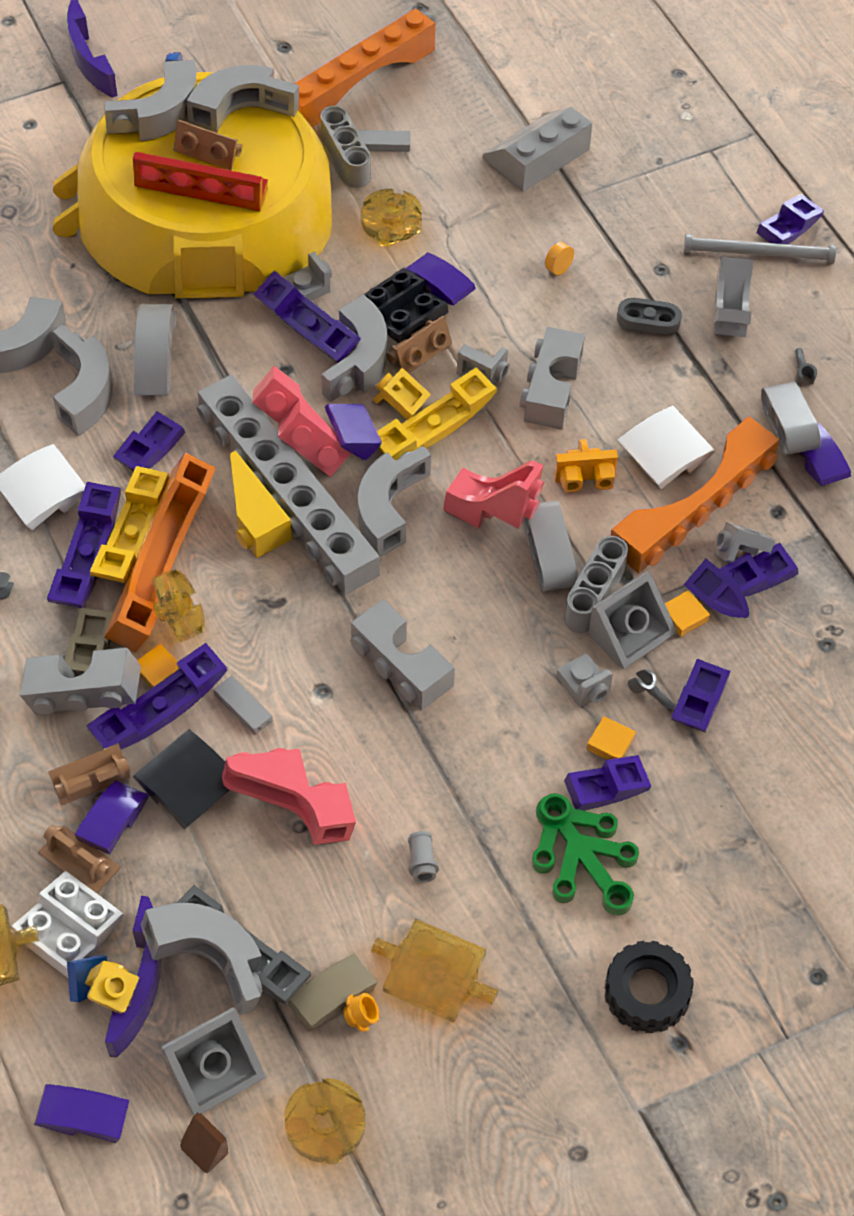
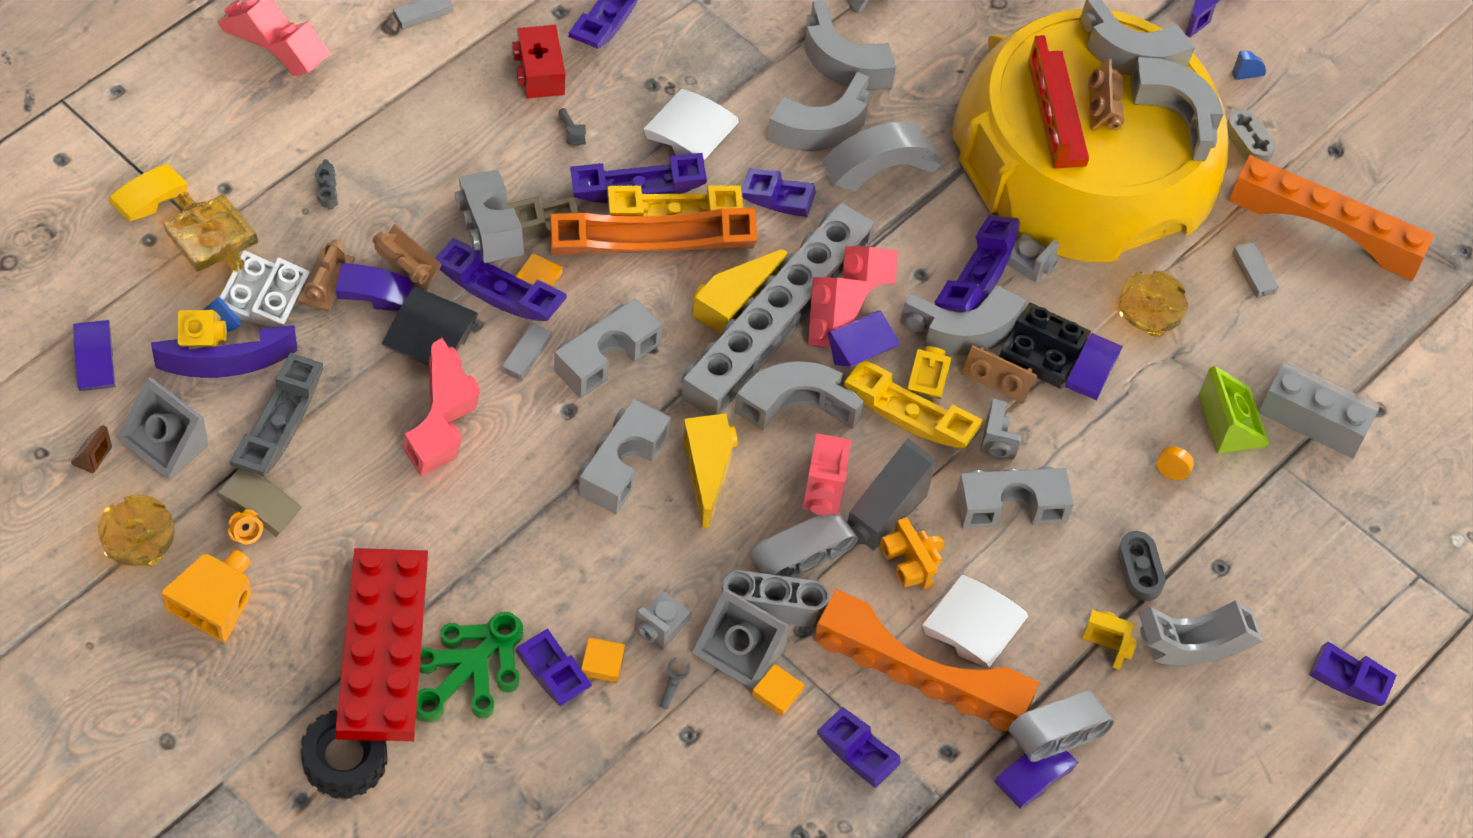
camera: 65 degrees right, 0 degrees up
(177, 606) = (586, 250): clear yellow plate -> none
(208, 933) = (266, 360): light grey arch -> none
(281, 656) = (627, 329): none -> light grey arch
(345, 146) = (1220, 235): light grey beam -> none
(422, 858) = (416, 533): light grey pin -> none
(431, 588) = (708, 452): none -> yellow slope
(431, 1062) = (210, 594): none -> light orange torso
(434, 970) = (306, 576): clear yellow plate -> none
(520, 441) = (892, 494): none -> dark grey slope
(523, 209) = (1231, 413): none -> lime slope
(544, 916) = (382, 645): none -> red plate
(701, 695) = (684, 729): dark purple slope -> none
(712, 353) = (1111, 632): none -> yellow bracket
(717, 590) = (815, 704): dark purple plate -> none
(742, 538) = (886, 718): light grey bracket -> none
(759, 248) = (1325, 724): light grey bar -> none
(804, 368) = (1149, 733): dark grey hand -> none

